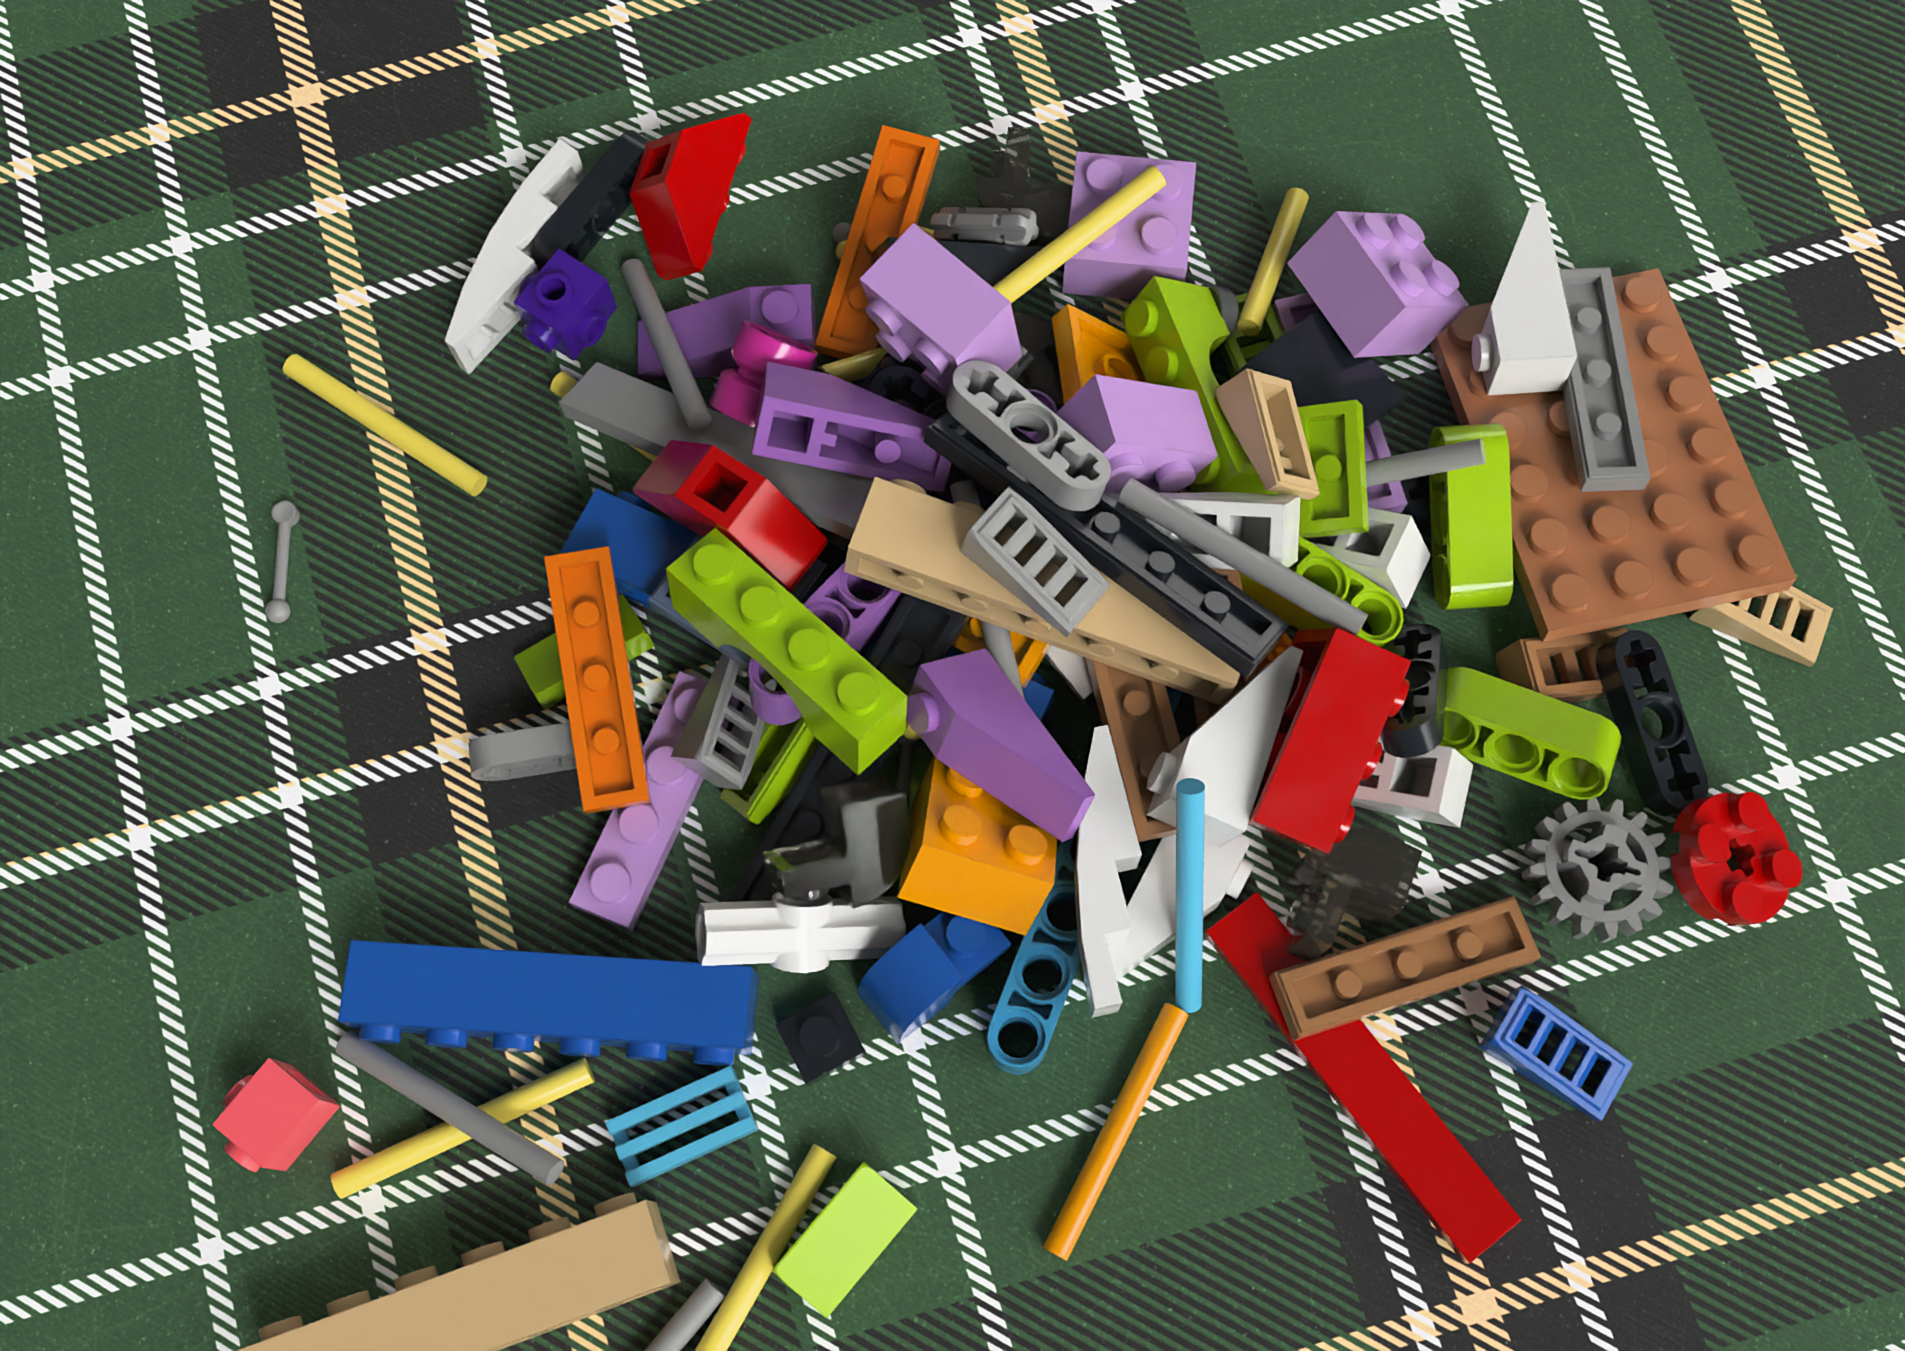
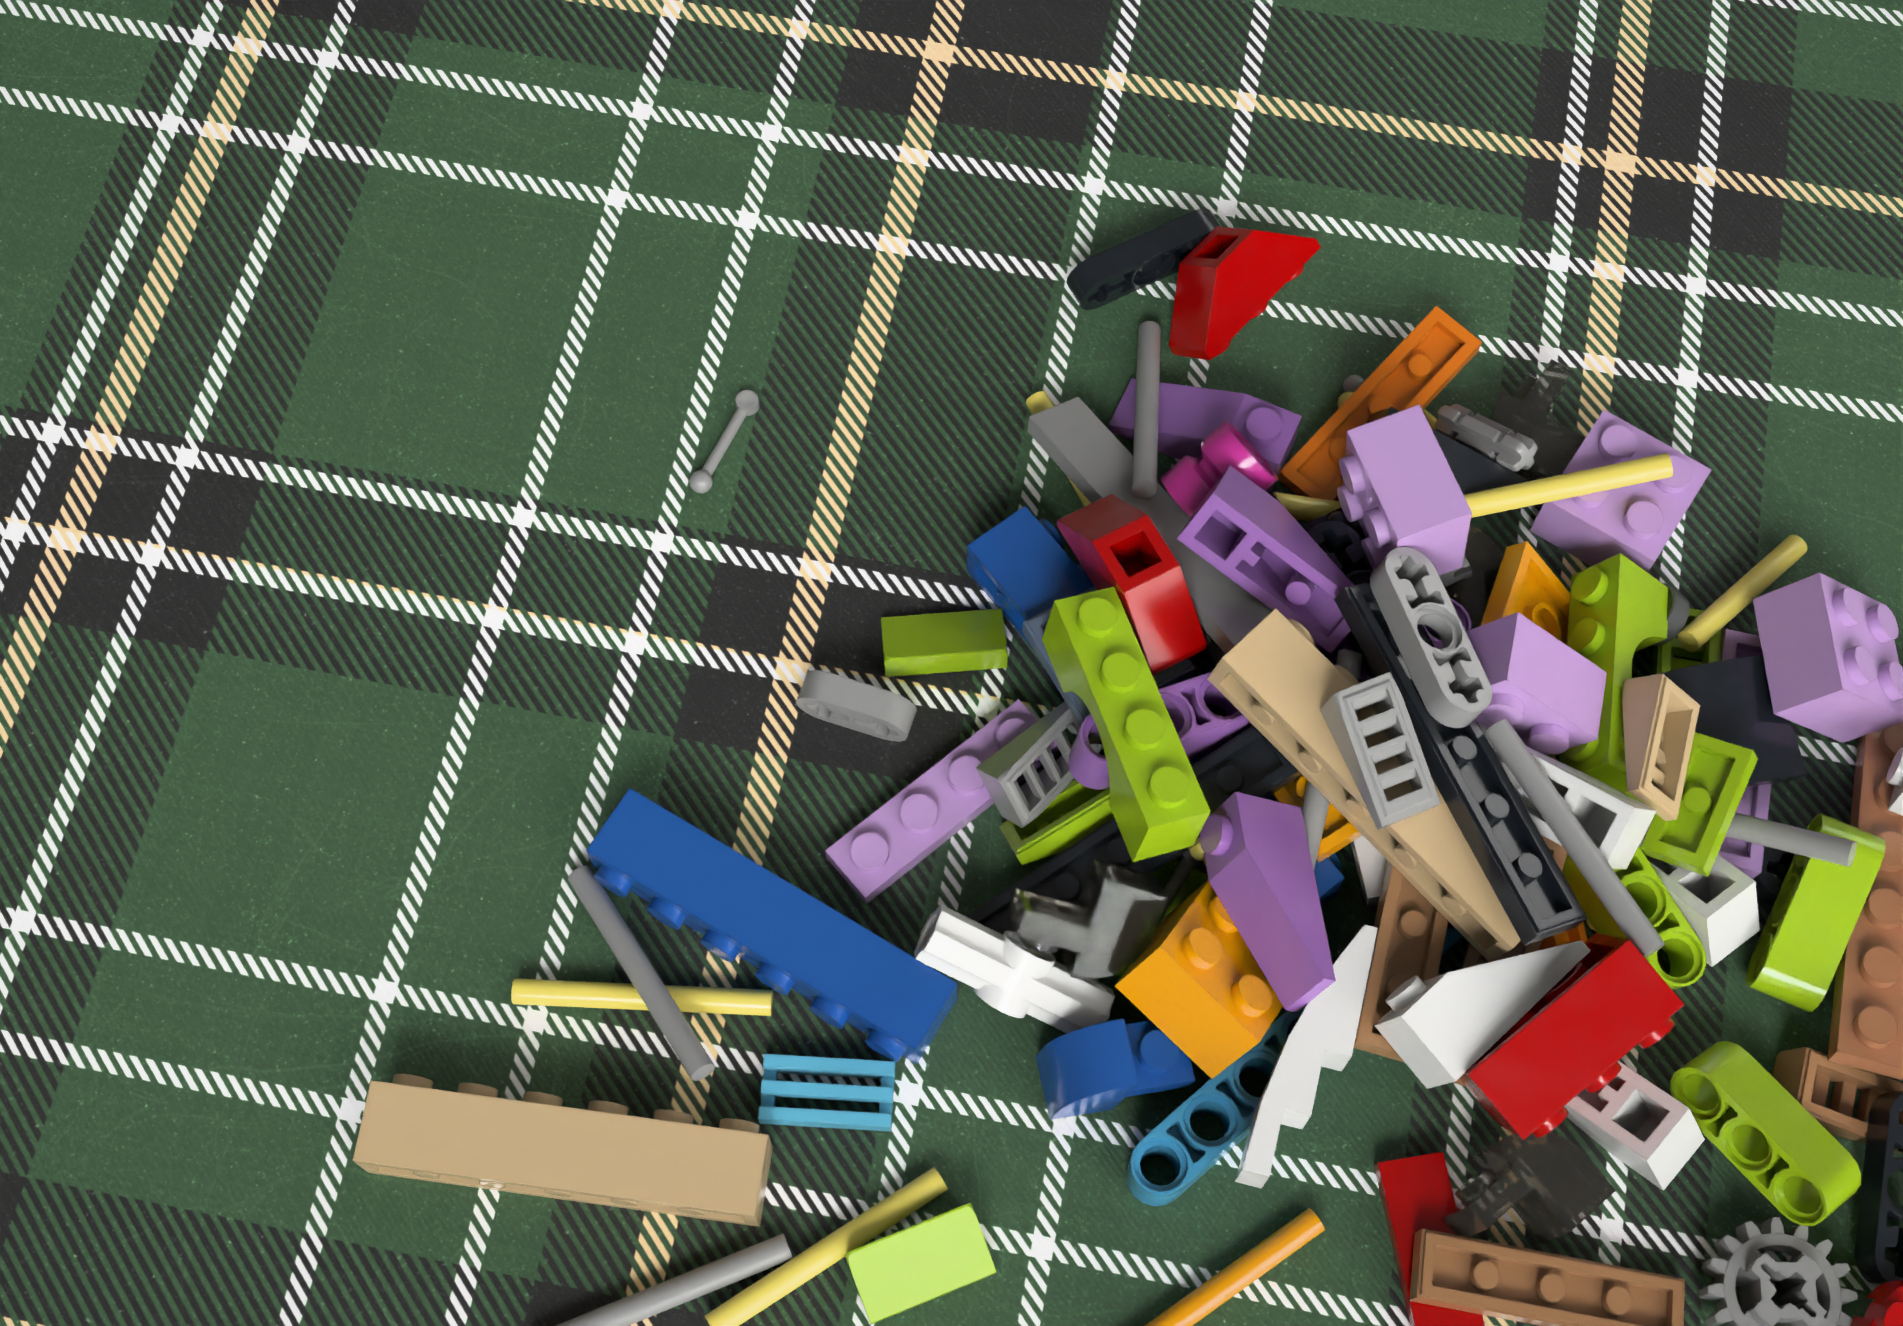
camera: 25 degrees right, 5 degrees down
(273, 1116) = (492, 904): coral brick -> none
(385, 425) = (869, 367): light yellow bar -> none
(505, 260) = (1036, 284): white slope -> none
(565, 306) = (1074, 336): dark purple brick -> none
(597, 680) = (945, 671): orange plate -> none
(820, 1039) = (984, 1080): black plate -> none
(1154, 900) = (1367, 1115): white slope -> none
(1189, 893) = (1377, 1115): medium azure bar -> none
(1426, 701) = (1677, 1059): black beam -> none

